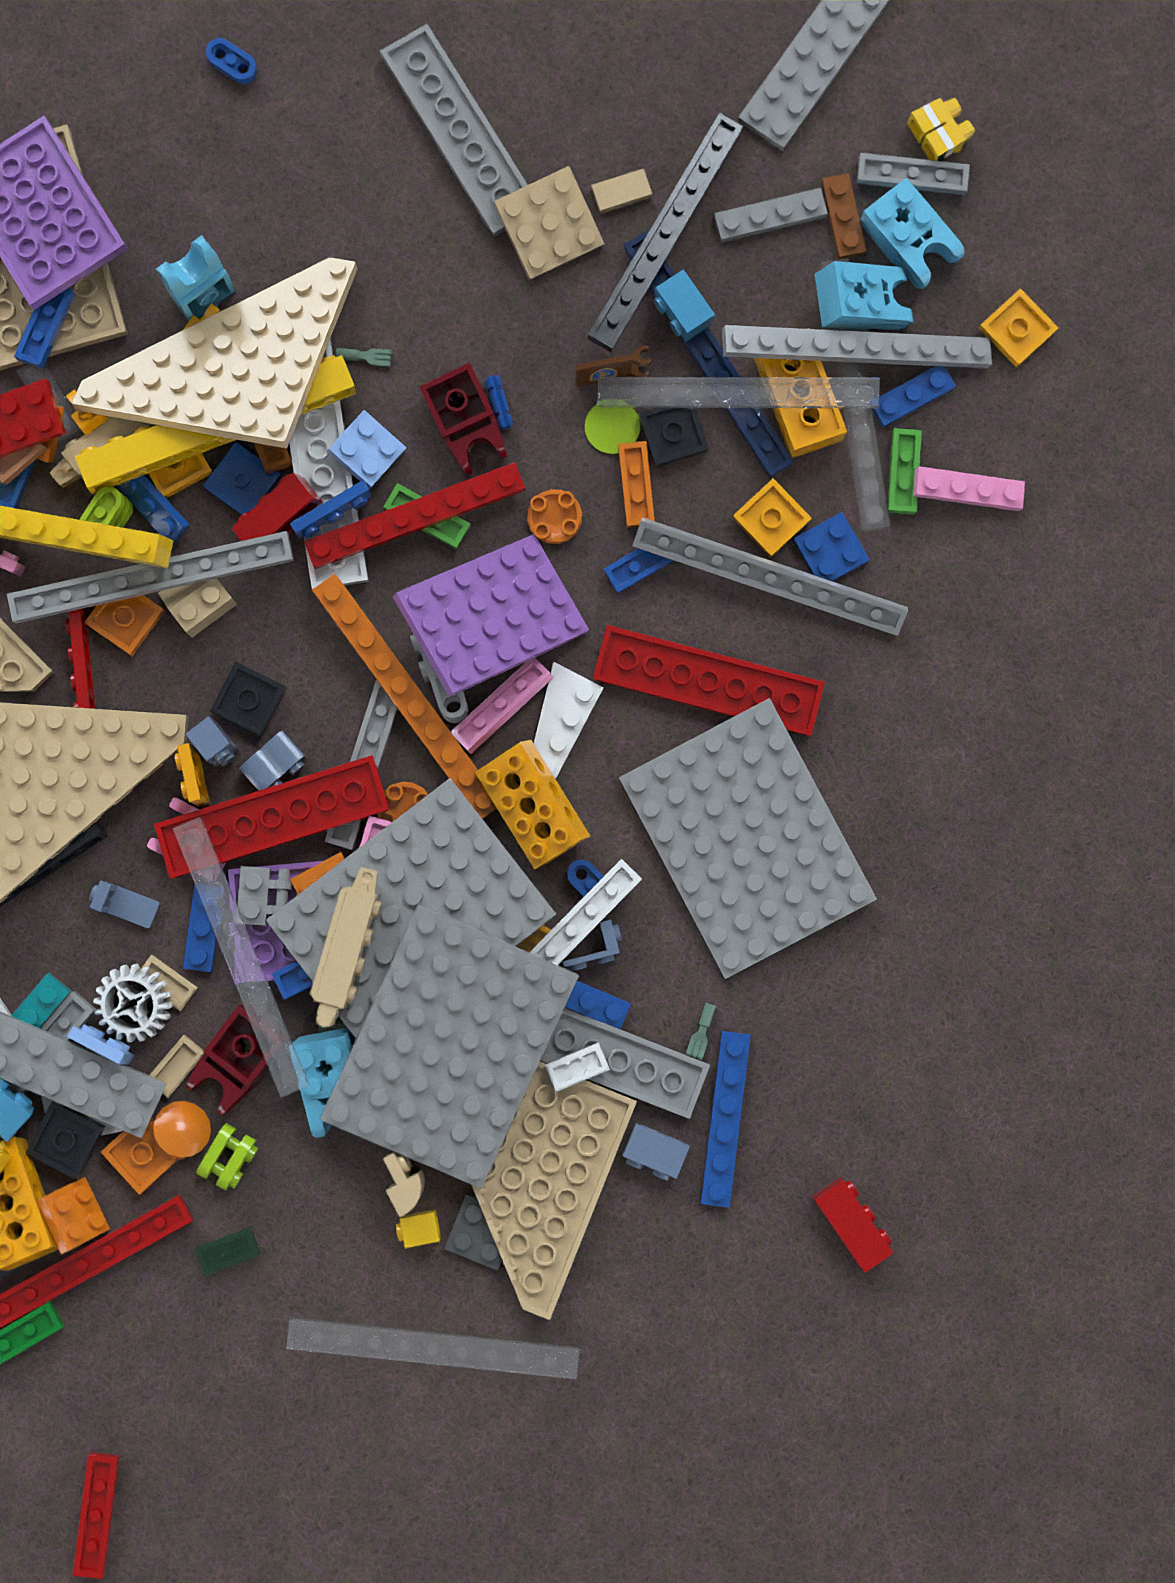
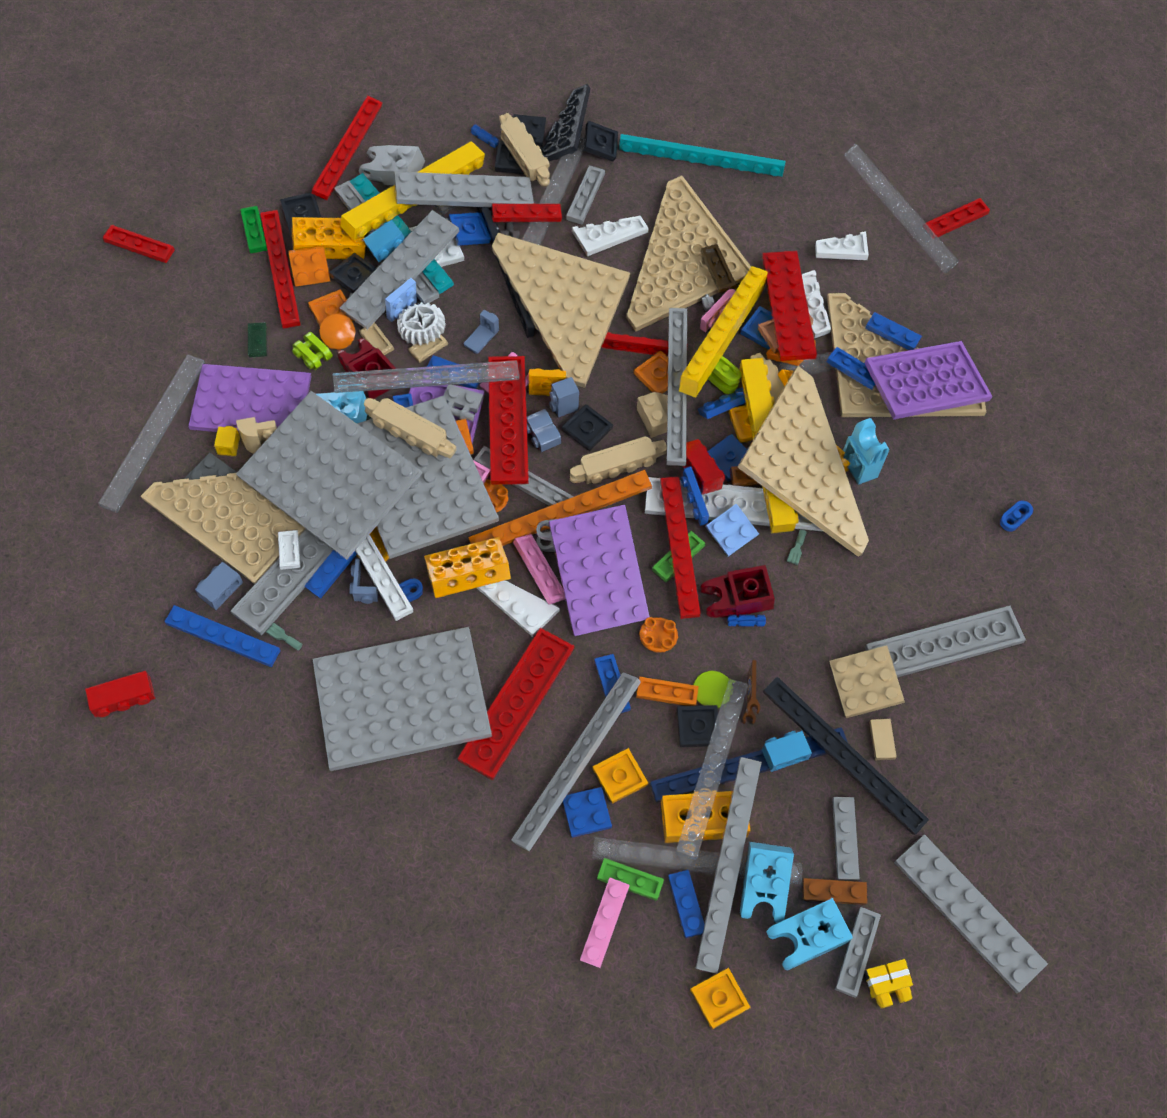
camera: 110 degrees right, 20 degrees down
(293, 639) = (617, 460): none -> tan hinge
(336, 1224) = (243, 393): none -> medium lavender plate

